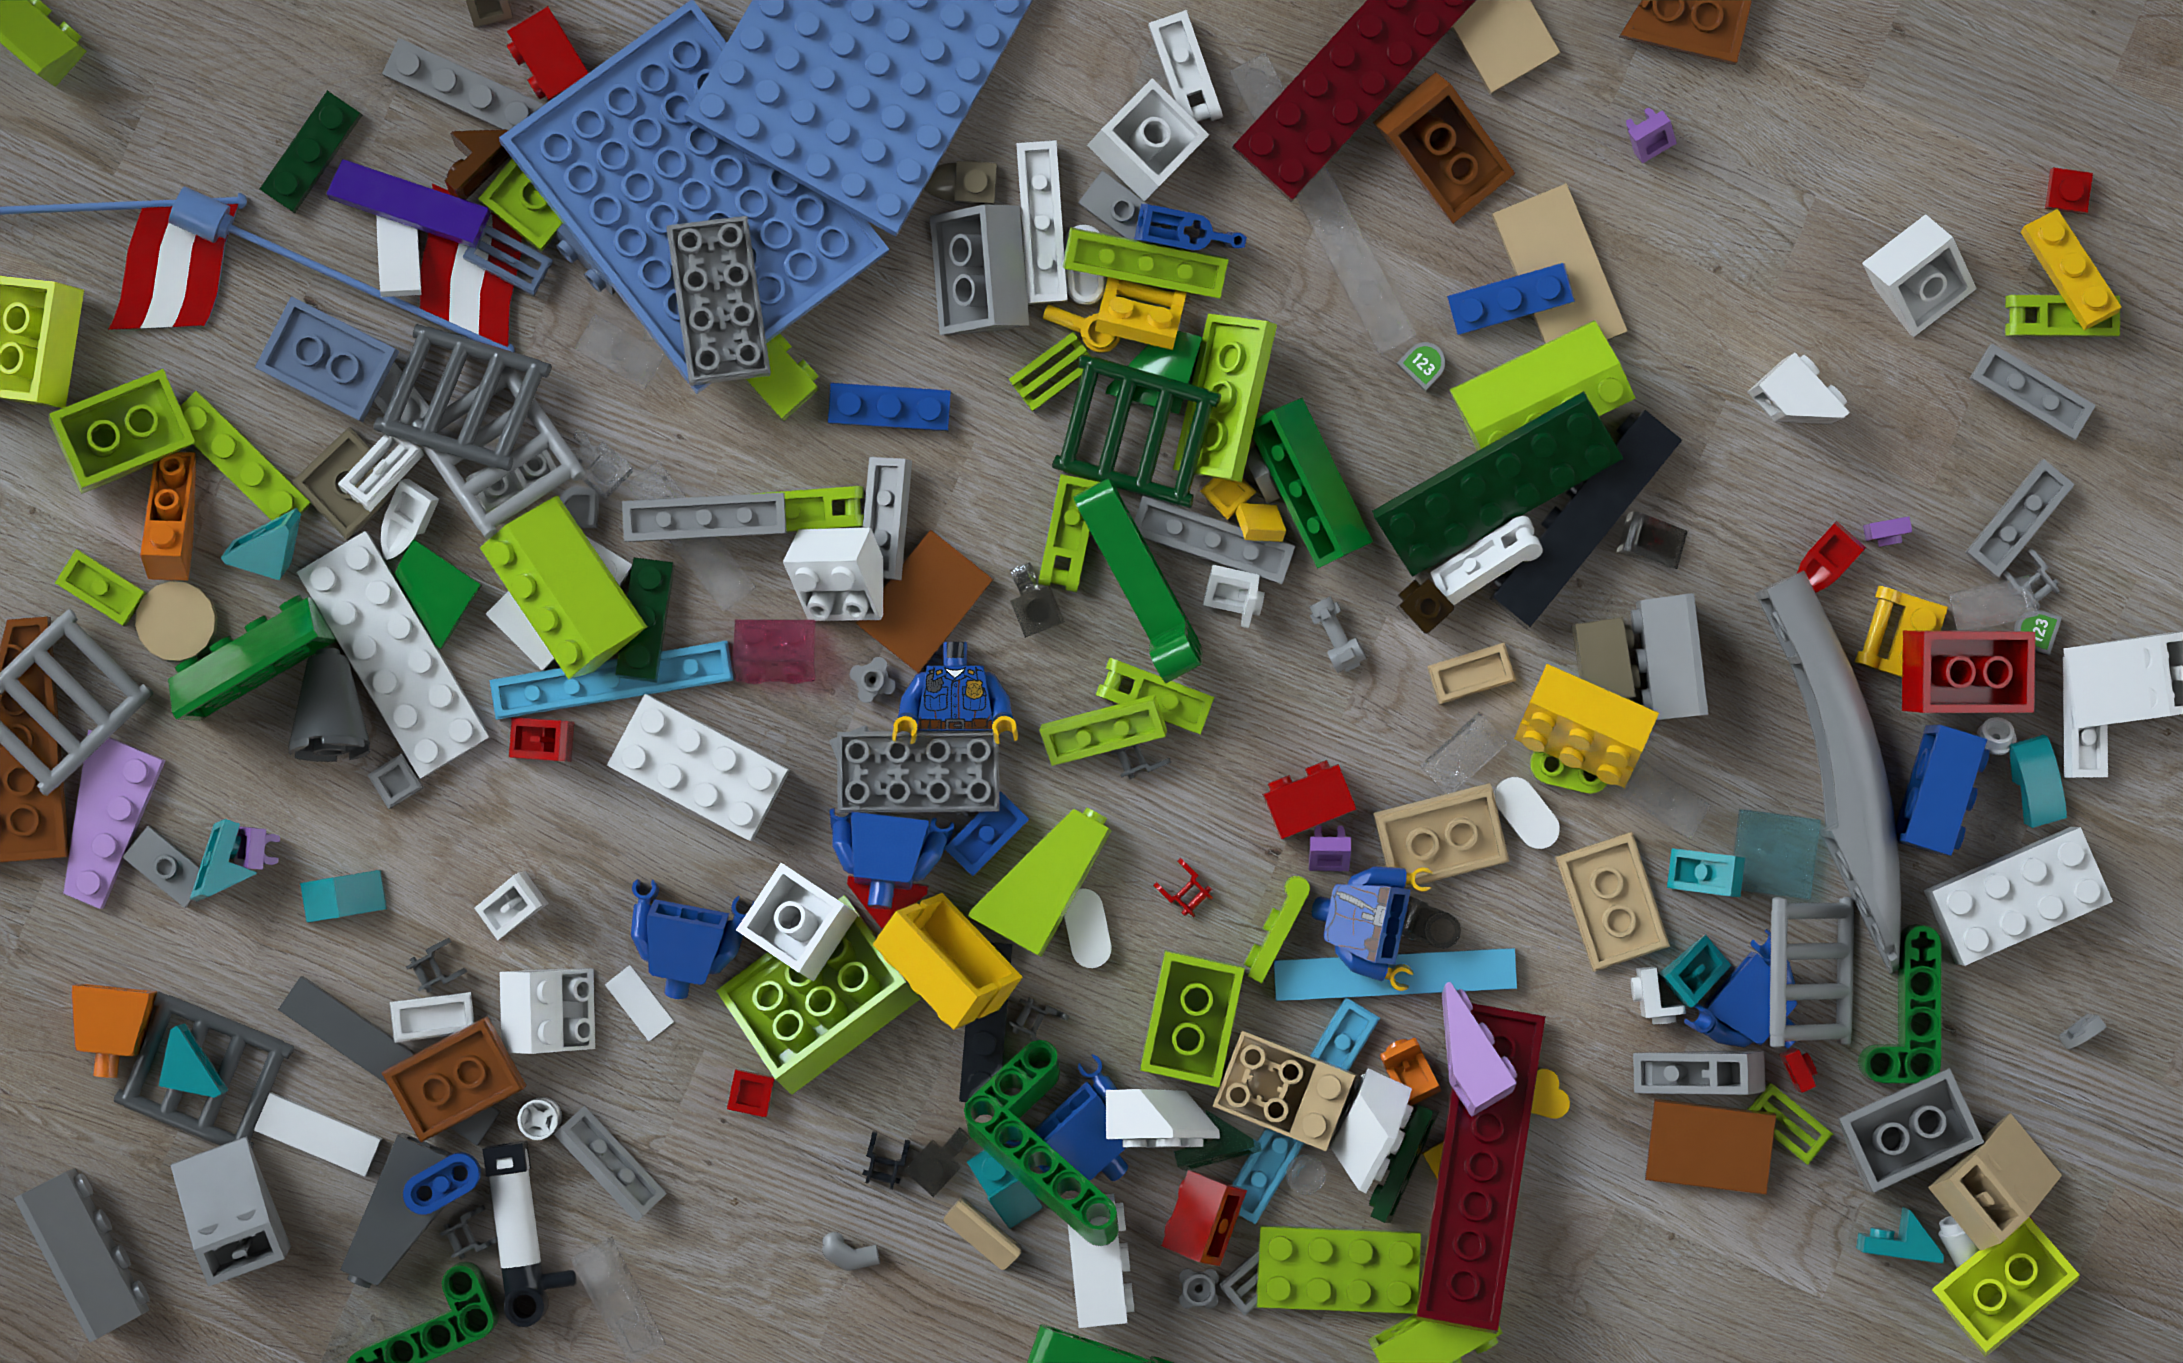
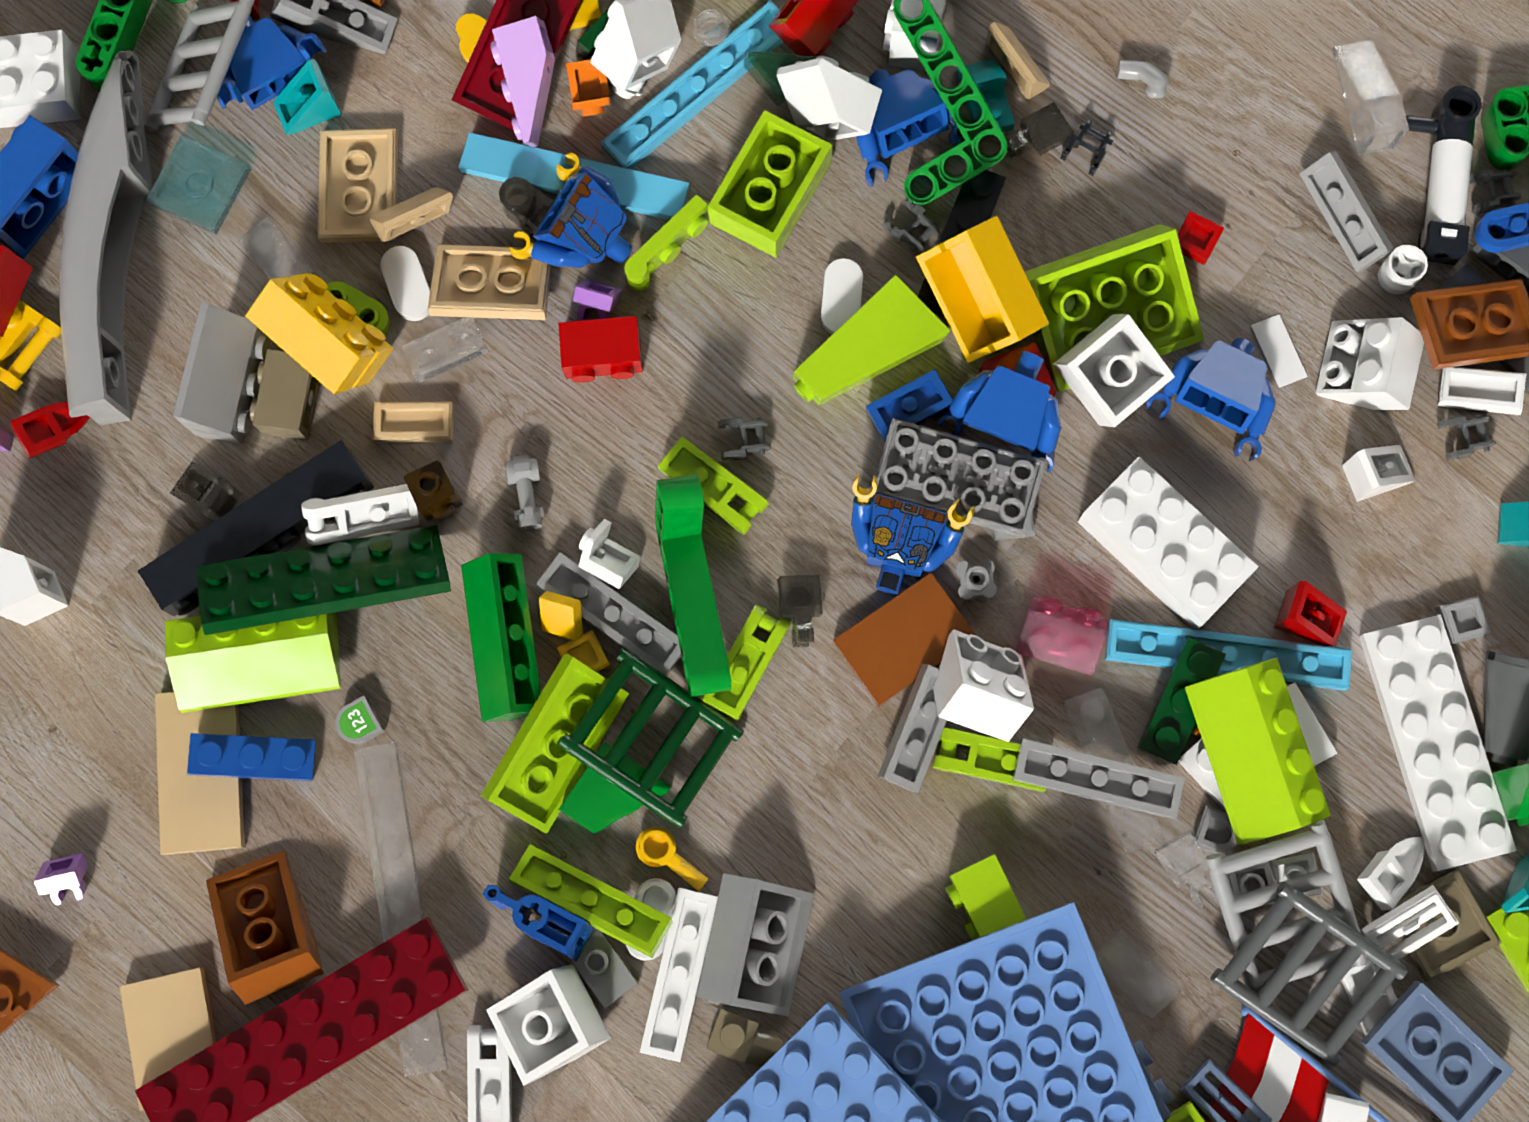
camera: 155 degrees left, 10 degrees down
(435, 590) = (1380, 792): green slope -> none
(718, 300) = (1027, 989): light grey tile -> none
(889, 407) = (884, 837): blue plate -> none
(1024, 392) = (747, 811): lime tile -> none
(1103, 730) = (771, 465): lime plate -> none
(1140, 320) = (615, 845): yellow plate -> none
(1196, 900) = (753, 300): red piece -> none
(1262, 475) = (544, 658): light grey tile -> none
(1285, 1090) = (702, 92): tan slope -> none
(1545, 885) = (411, 213): none -> tan slope
(1646, 990) = (353, 91): white bracket -> none
(1706, 872) = (261, 180): teal slope -> none

